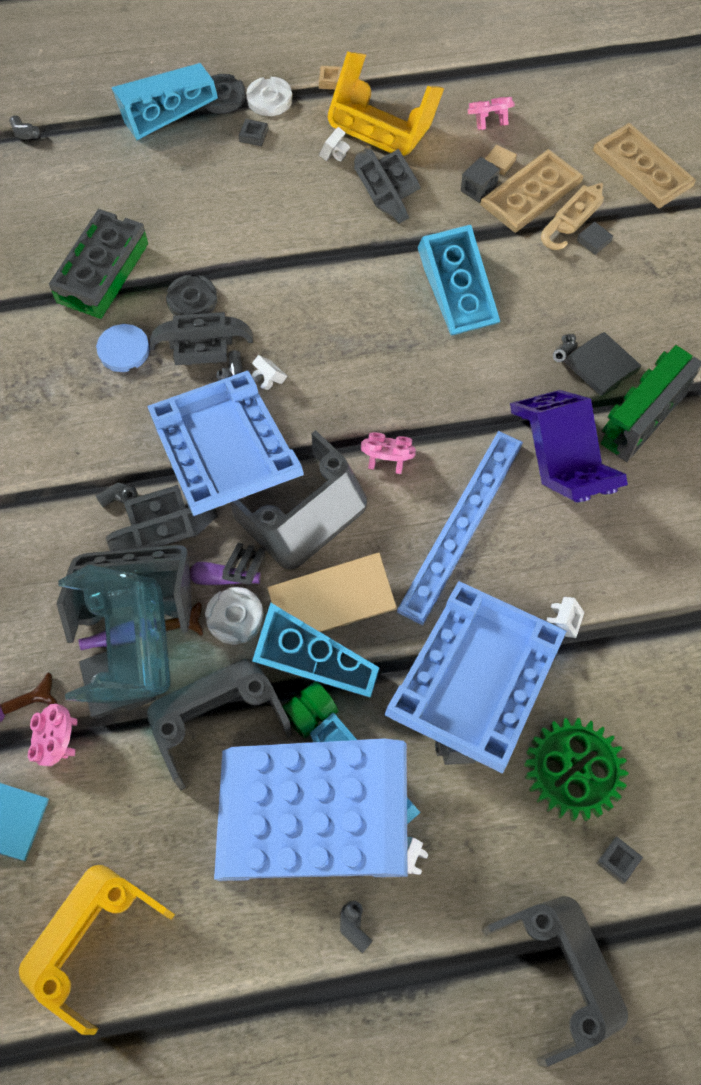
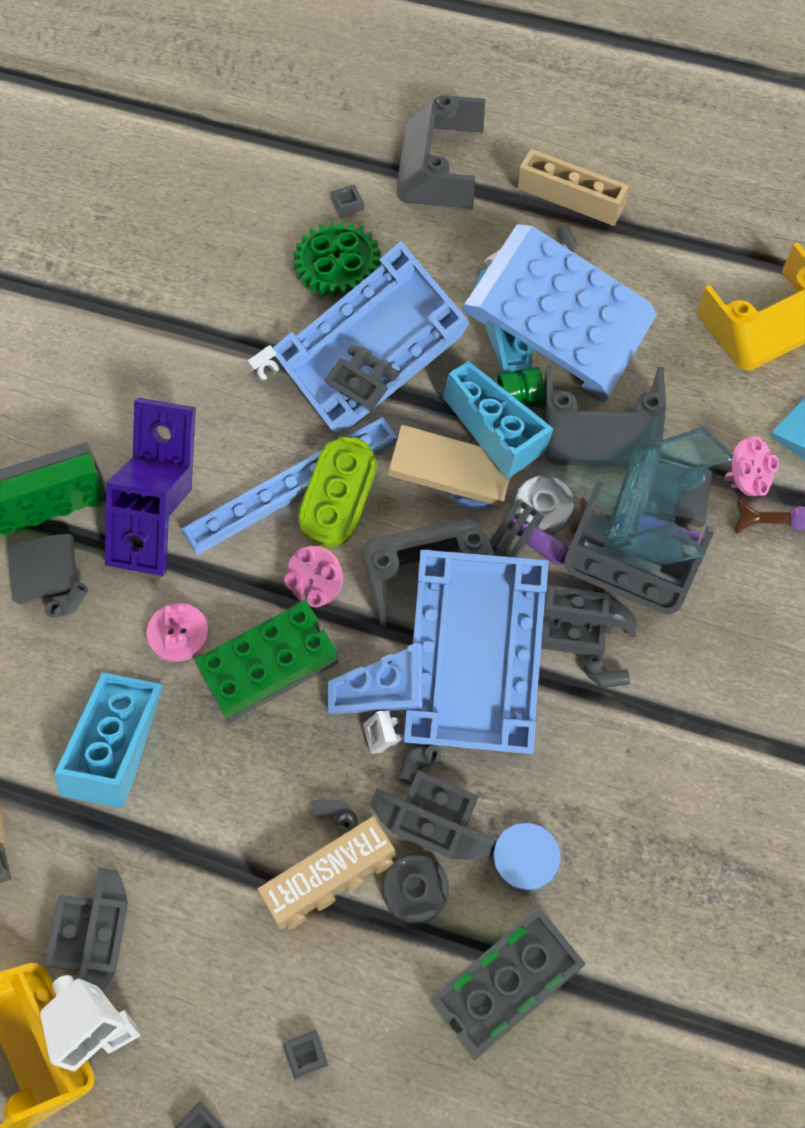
camera: 150 degrees left, 0 degrees up
(212, 188) = (305, 1054): none -> dark grey tile
(254, 273) = (327, 873): none -> tan brick
(270, 315) = (338, 811): none -> dark grey arm
(286, 392) = (382, 686): none -> light blue wing
(354, 126) = (77, 1022): none -> white torso
(381, 1002) = (572, 187): none -> tan brick
(383, 375) = (266, 661): none -> green piece
(417, 533) = (337, 492): none -> lime tile
(459, 621) = (356, 384): none -> dark grey plate
(473, 378) = (179, 645): none -> bright pink plate

